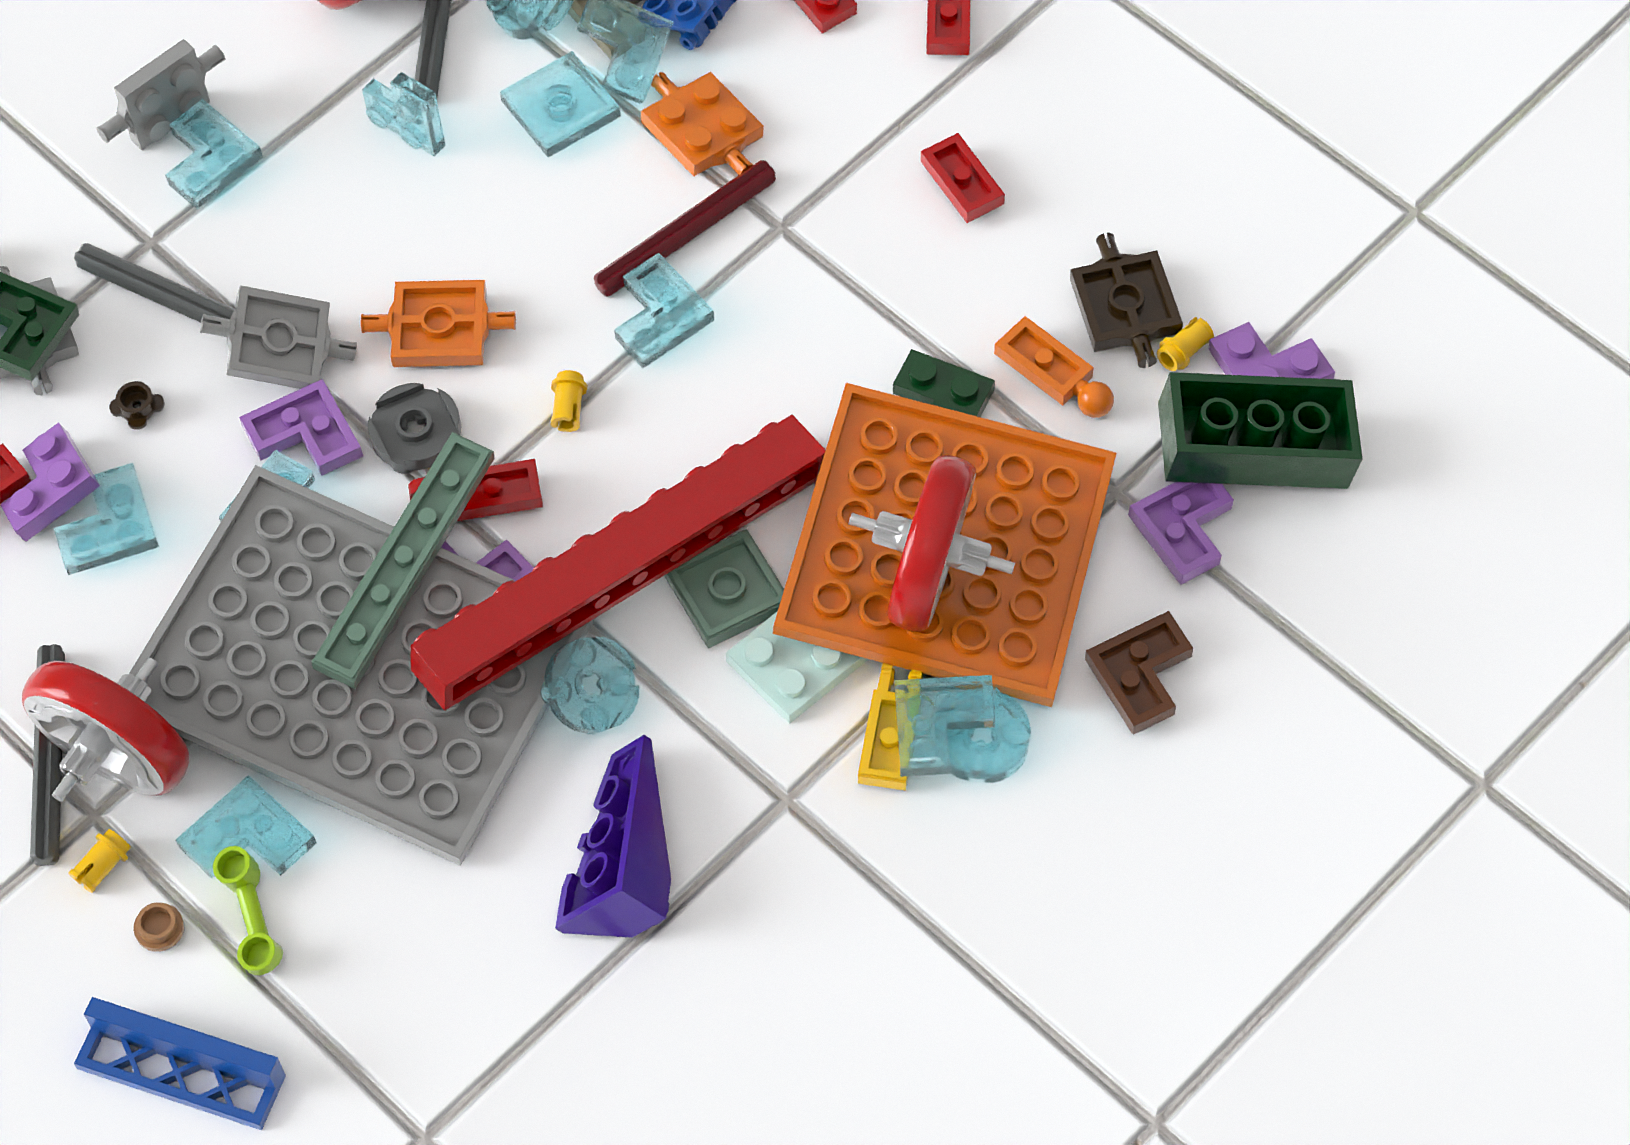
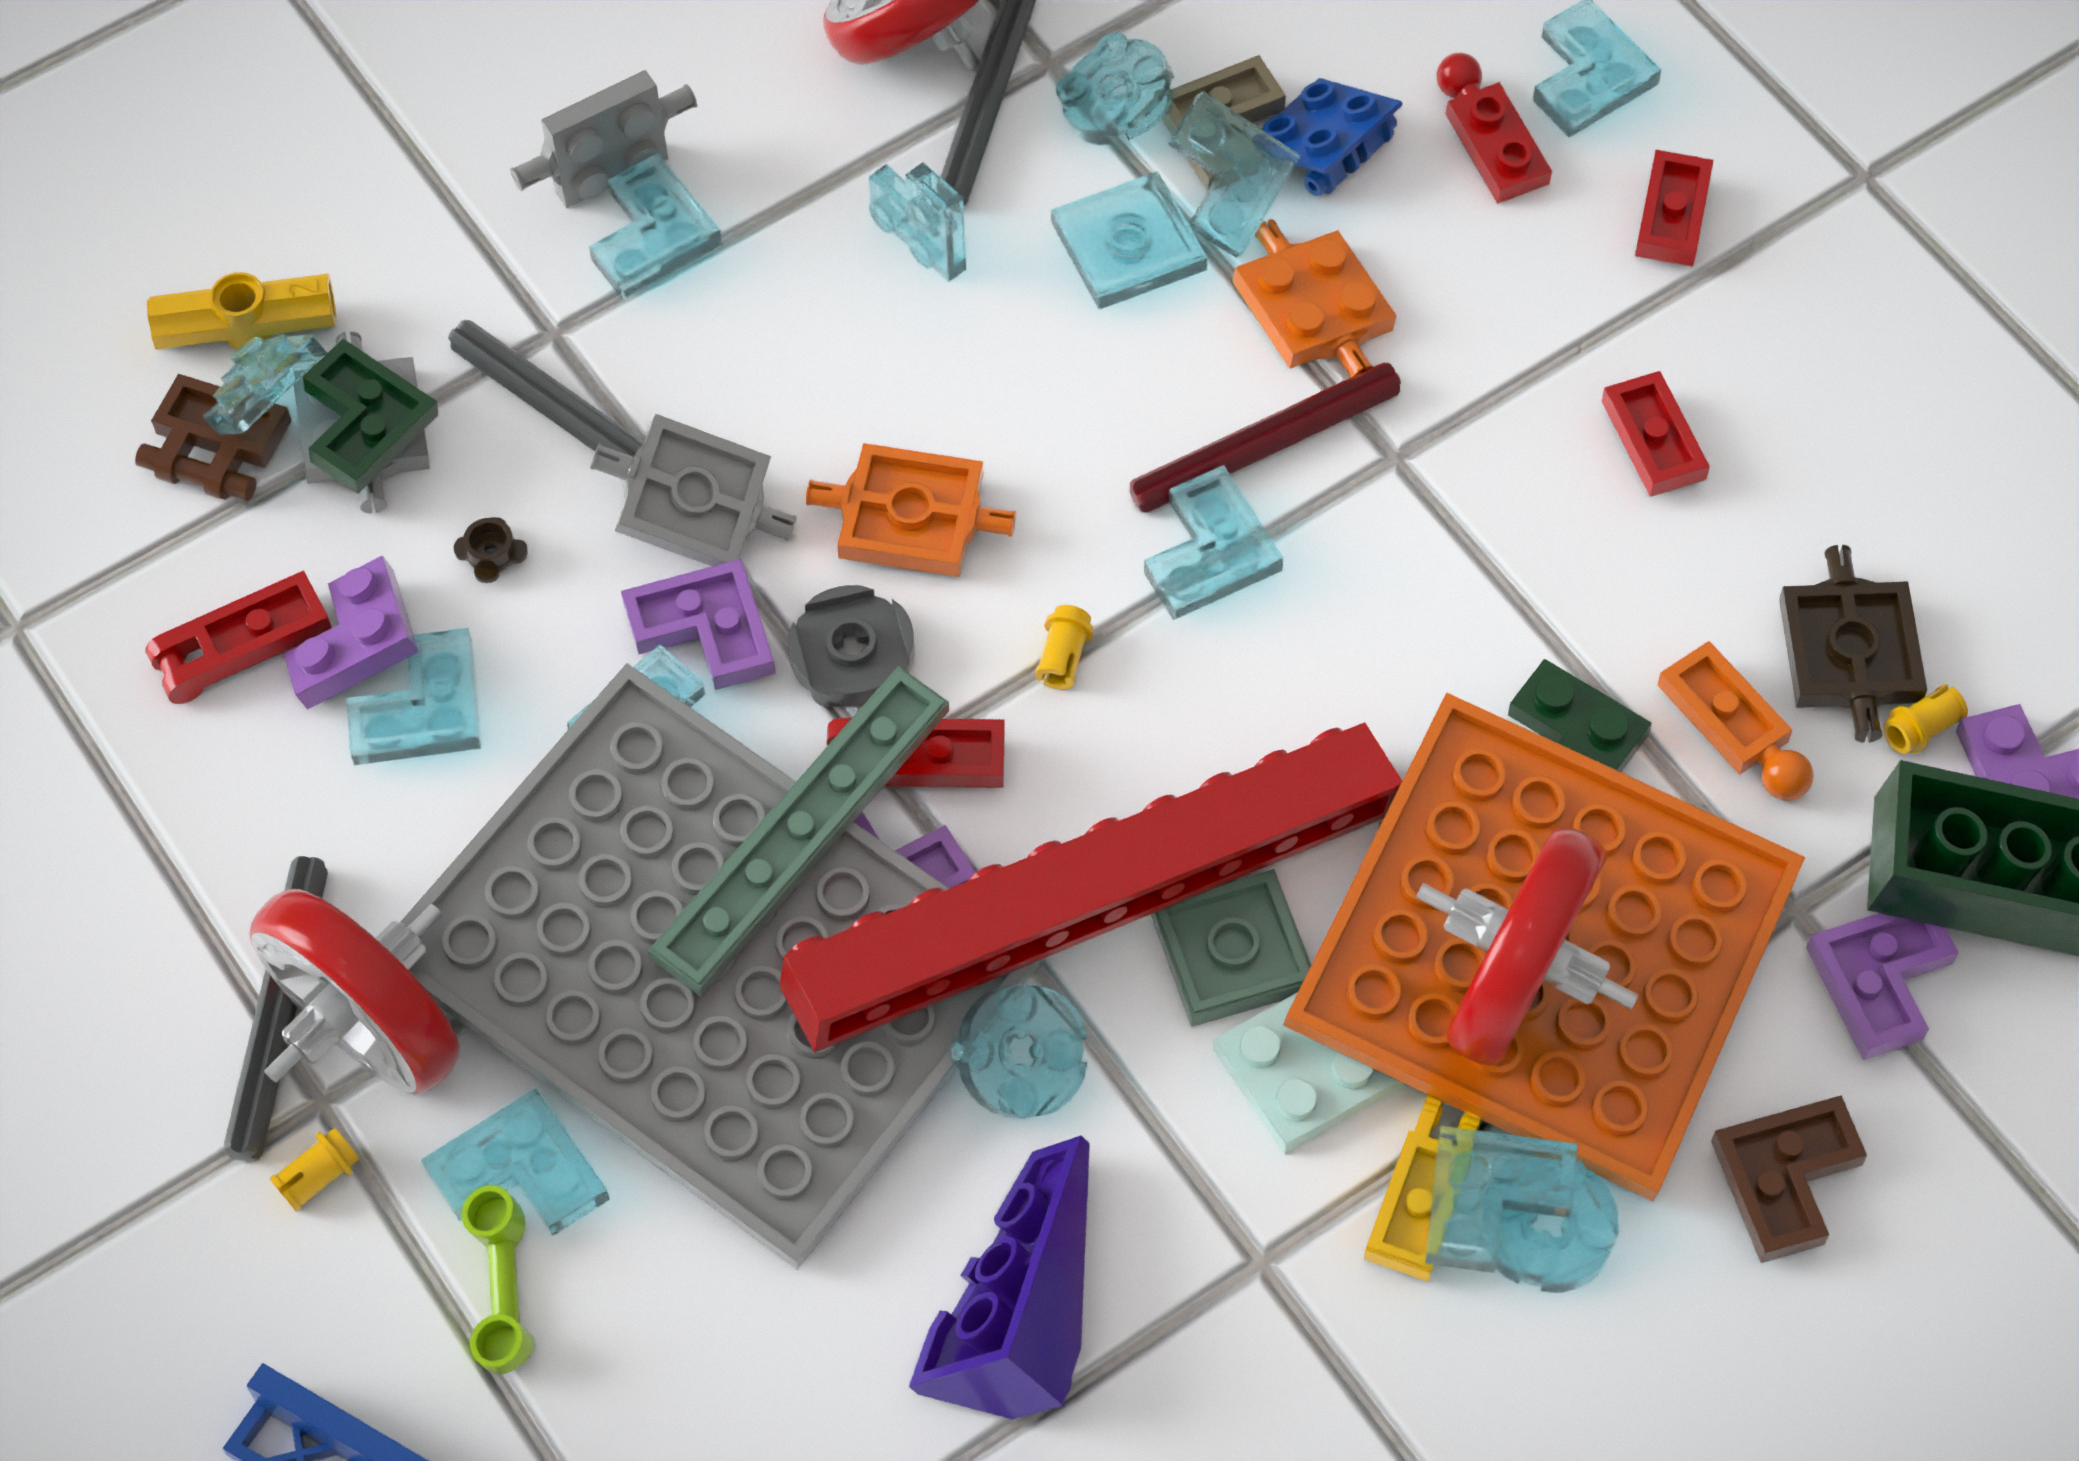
camera: 10 degrees right, 0 degrees up
(158, 927) = (374, 1277): medium nougat plate -> none

